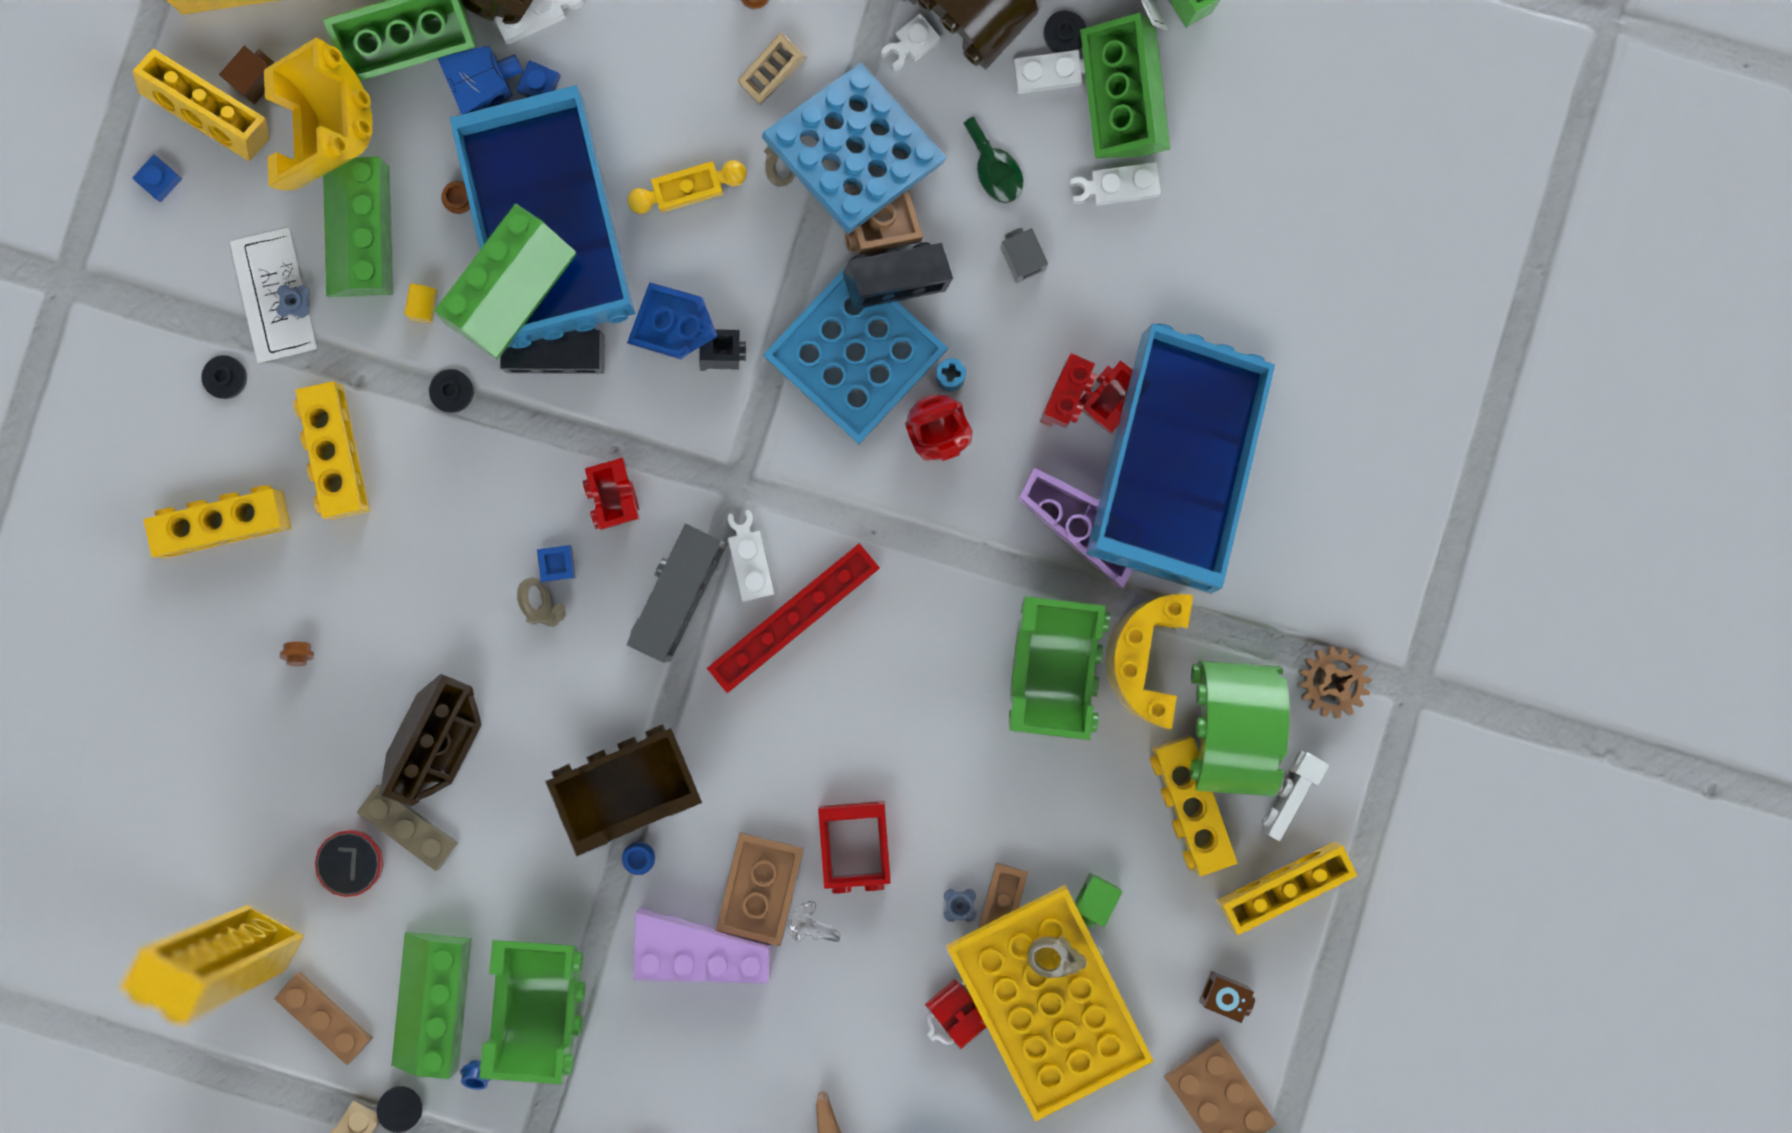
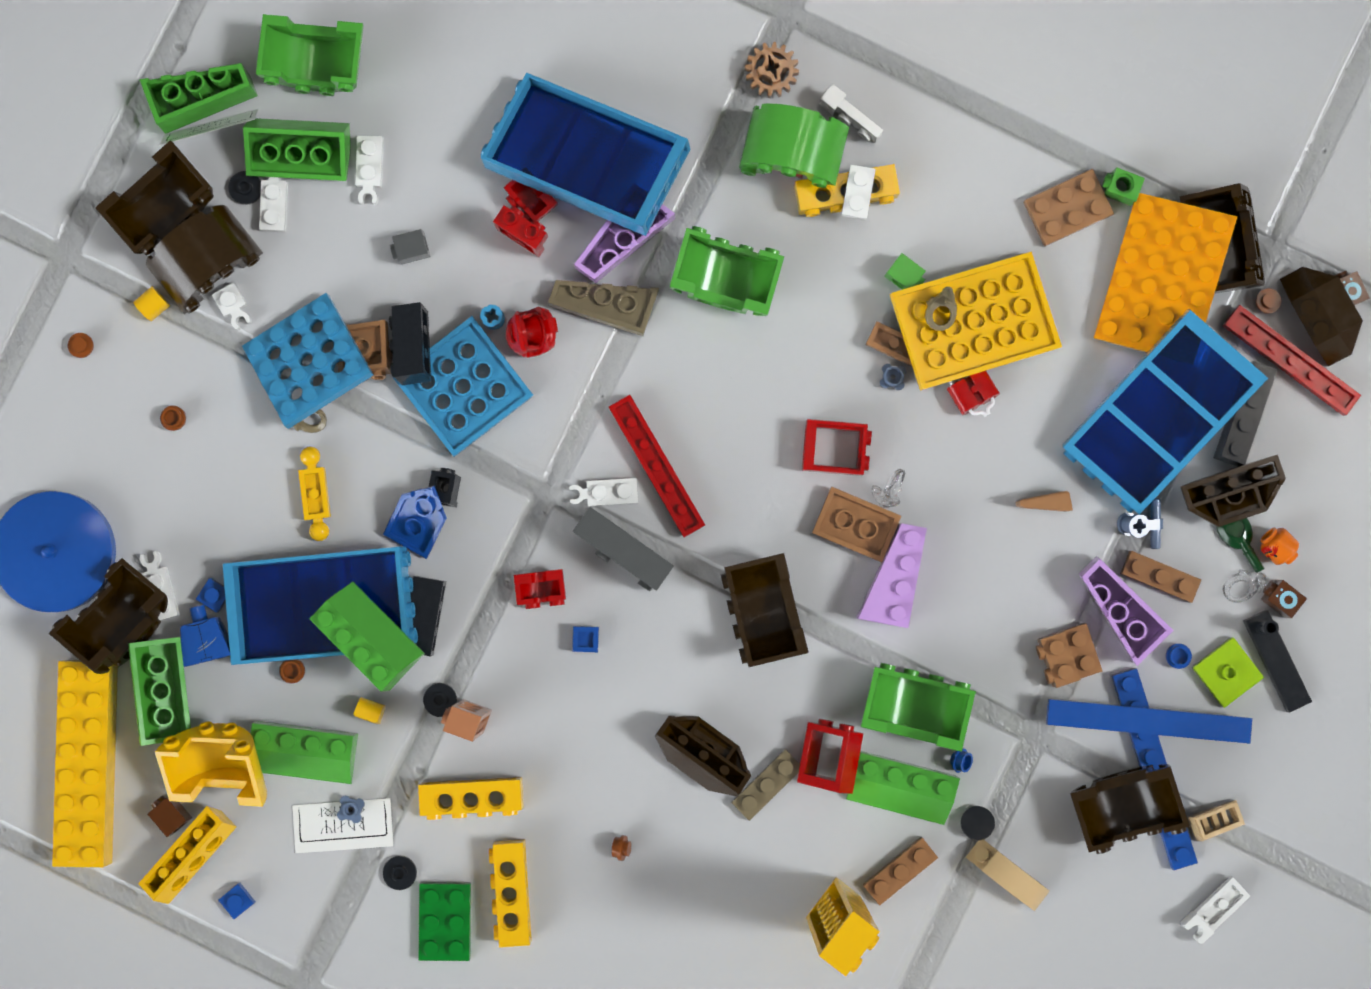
camera: 80 degrees left, 0 degrees up
(170, 444) = (444, 921): none -> green plate
(348, 863) = (786, 833): black tile -> none
(419, 426) = (466, 720): none -> nougat brick
(437, 930) = (847, 761): none -> red window
(544, 613) = (621, 654): dark tan piece -> none
(638, 858) = (818, 612): blue plate -> none
(797, 59) = (241, 410): tan slope -> none
(992, 529) = (608, 304): none -> dark tan wing
(996, 169) = (340, 257): dark green piece -> none
(1129, 655) = (725, 217): yellow cylinder -> none
(1192, 822) = (858, 192): none -> white plate
(1227, 997) = (993, 189): reddish brown brick -> none
(1248, 81) = (309, 55): none -> bright green cylinder
(1286, 887) = (918, 131): yellow brick -> none

